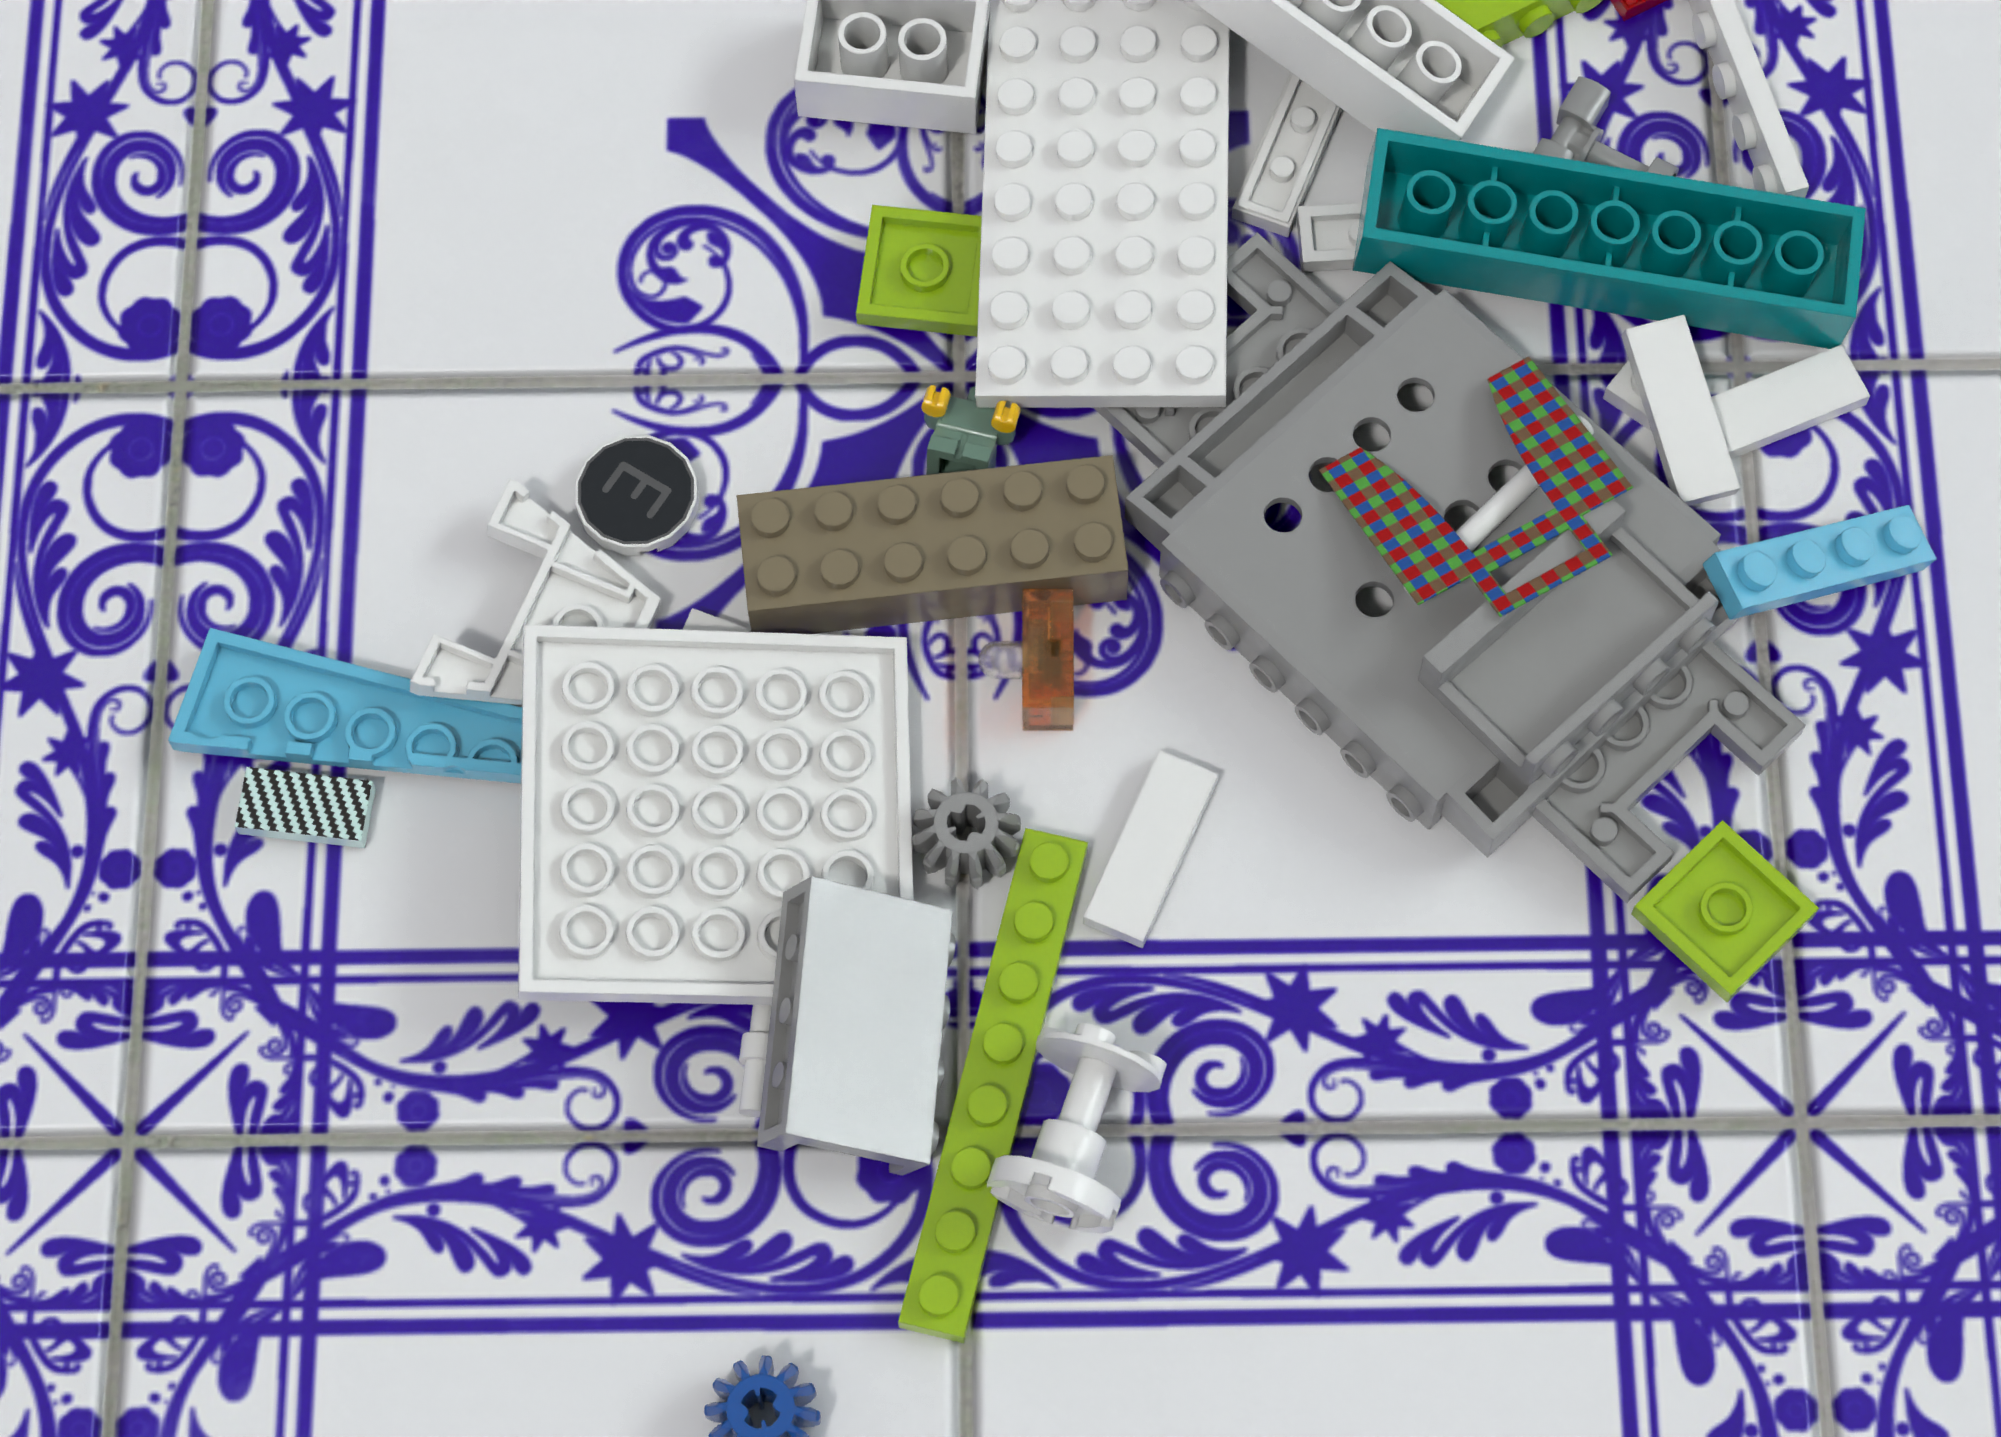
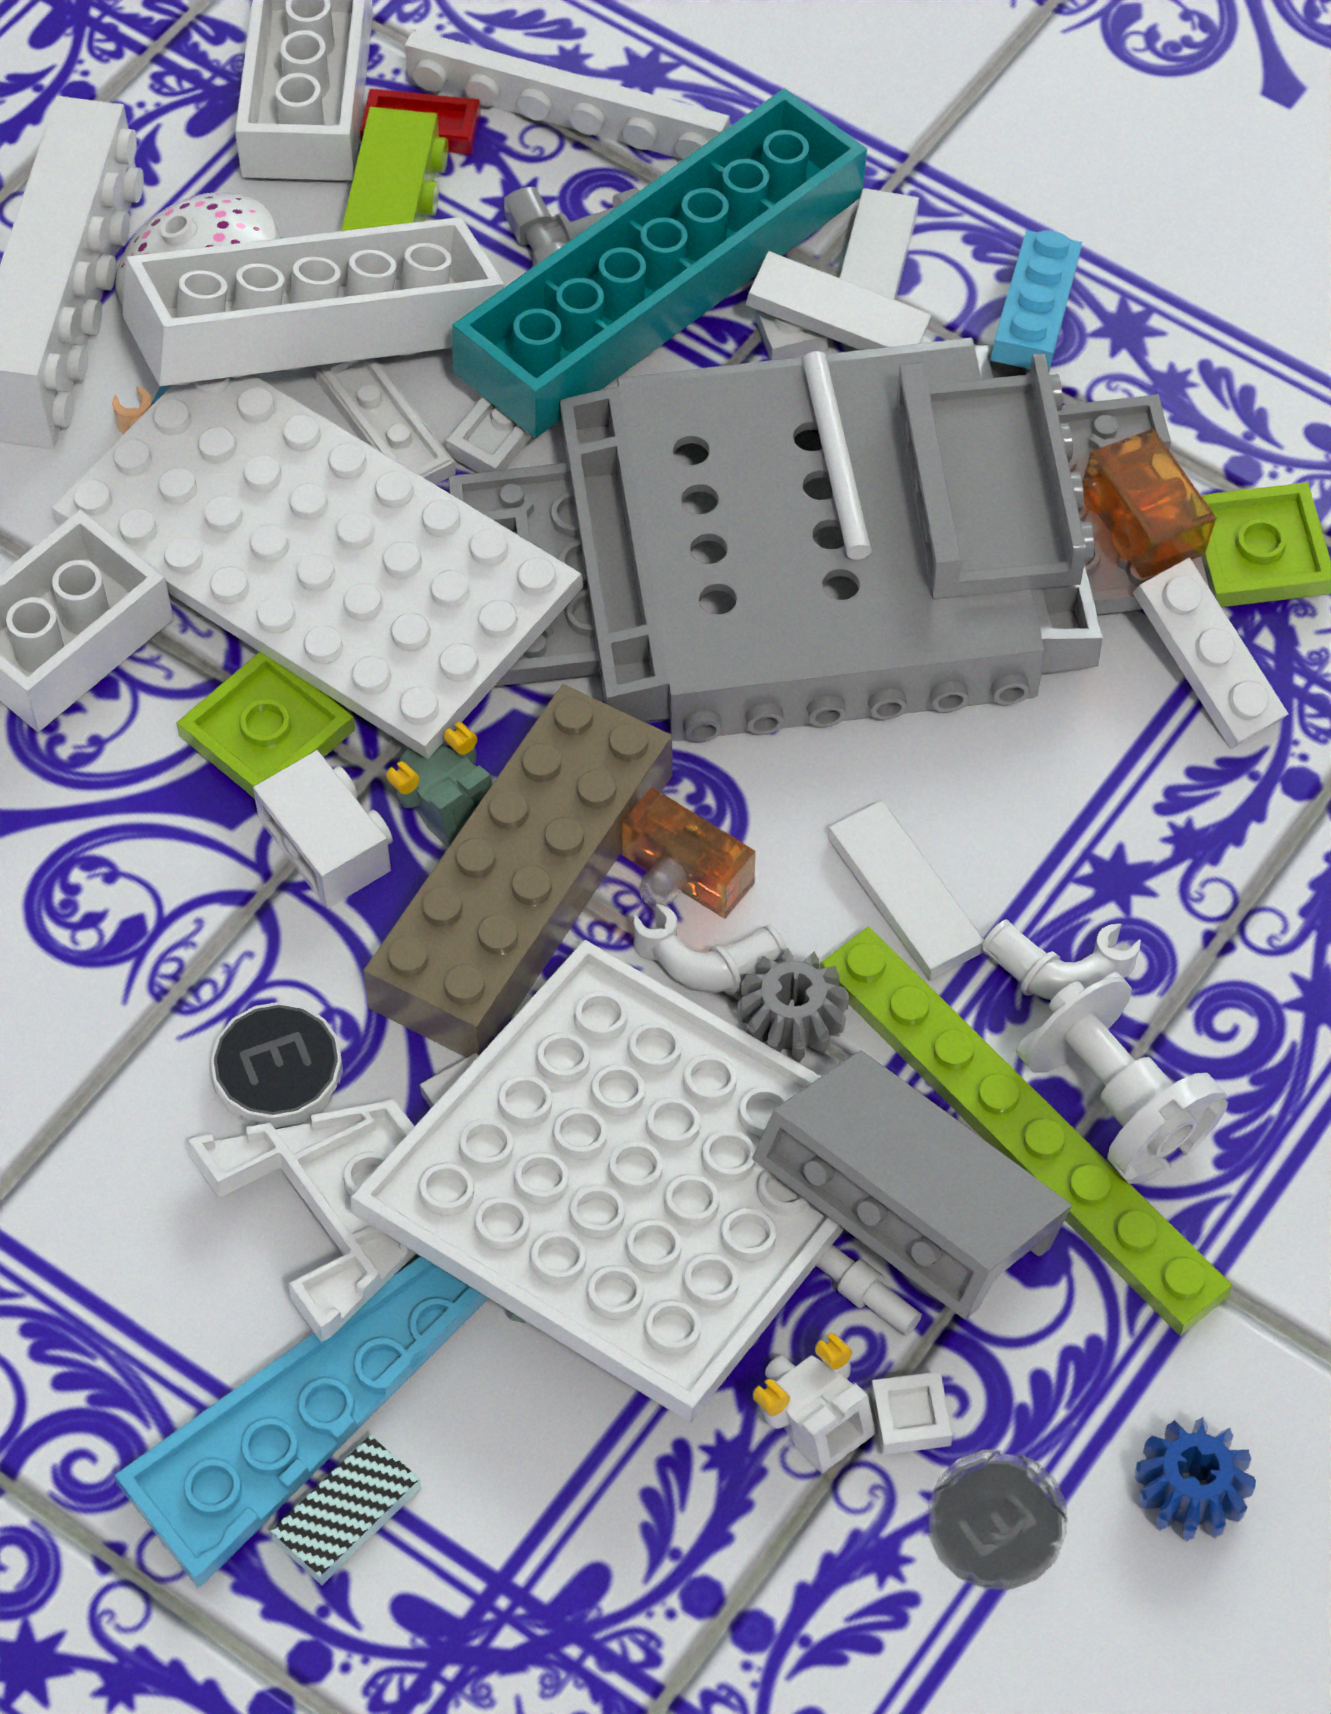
camera: 55 degrees left, 10 degrees down
(621, 1084) = (818, 1403): none -> white piece
(630, 1286) = (997, 1519): none -> clear tile
(669, 1161) = (911, 1413): none -> white plate
(862, 377) = (324, 828): none -> white brick
(958, 752) = (711, 970): none -> white piece
(1148, 1013) = (1045, 972): none -> white piece
(1426, 549) = (838, 511): piece -> none
(1565, 938) = (1210, 653): none -> white plate
(1658, 787) = (1147, 503): none -> clear orange brick

